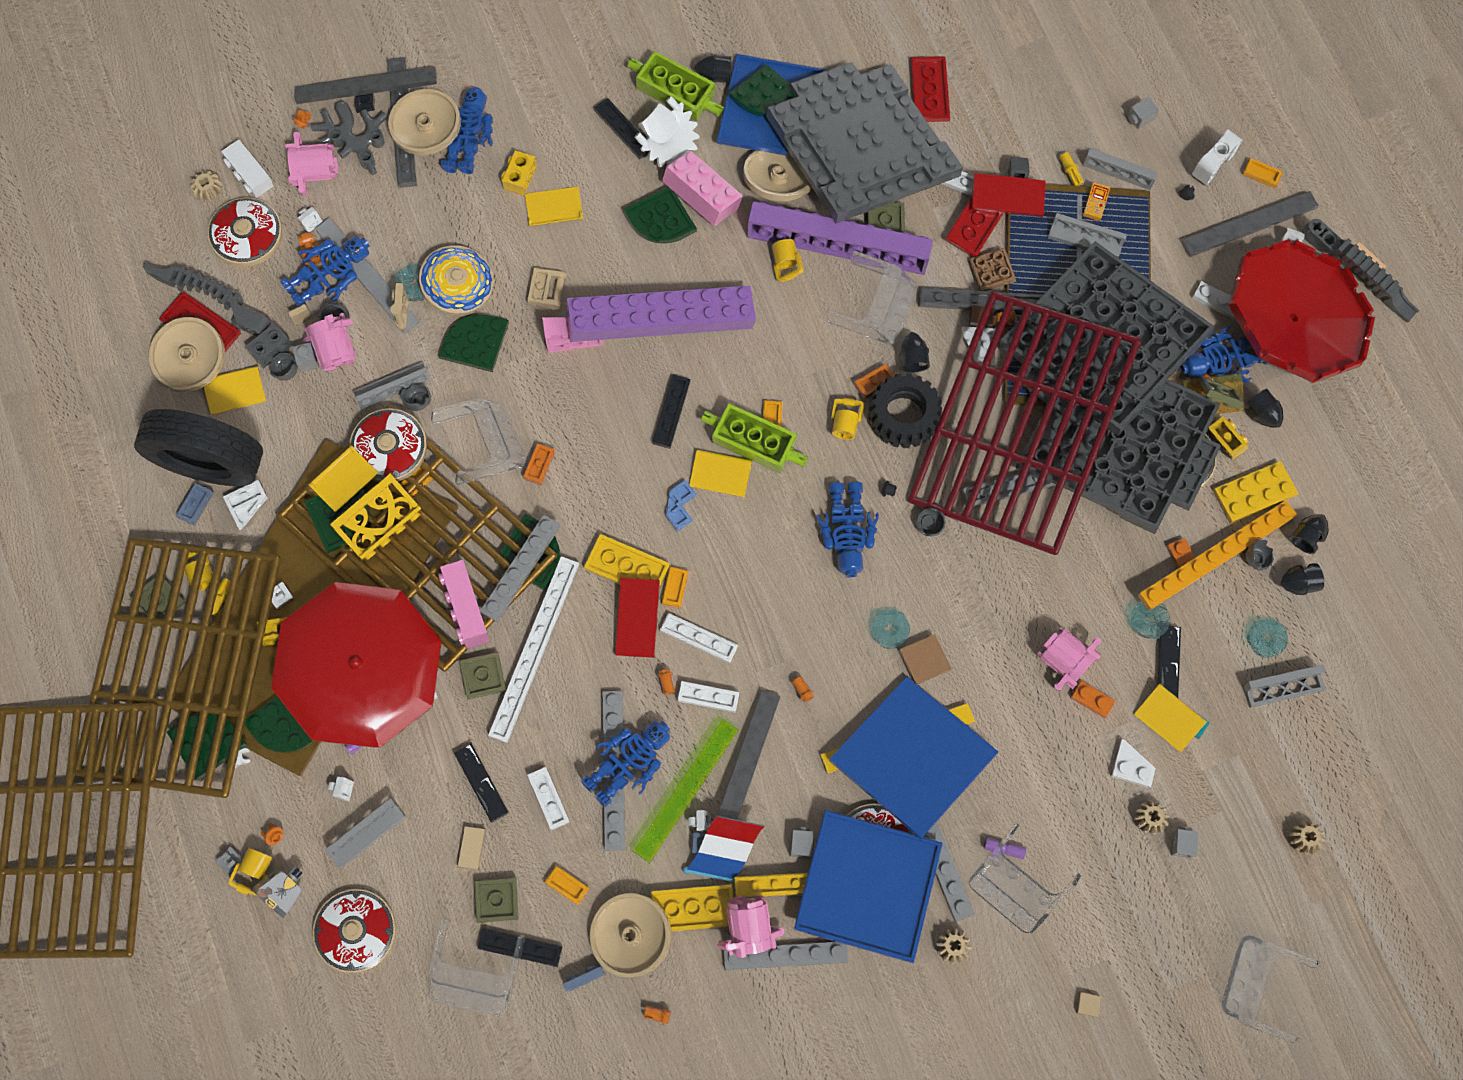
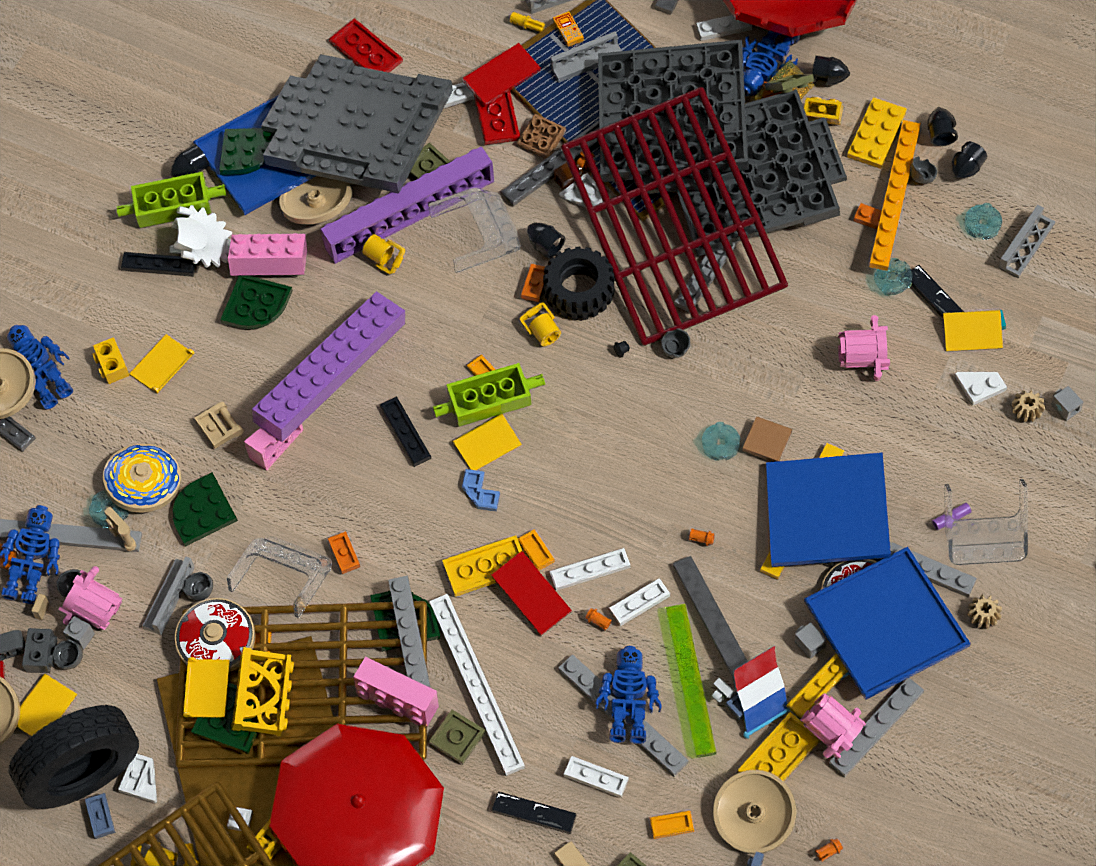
camera: 35 degrees left, 10 degrees down
(850, 559) = (631, 400): blue piece -> none
(1018, 167) = (489, 50): dark grey brick -> none
(1093, 699) = (909, 365): orange plate -> none

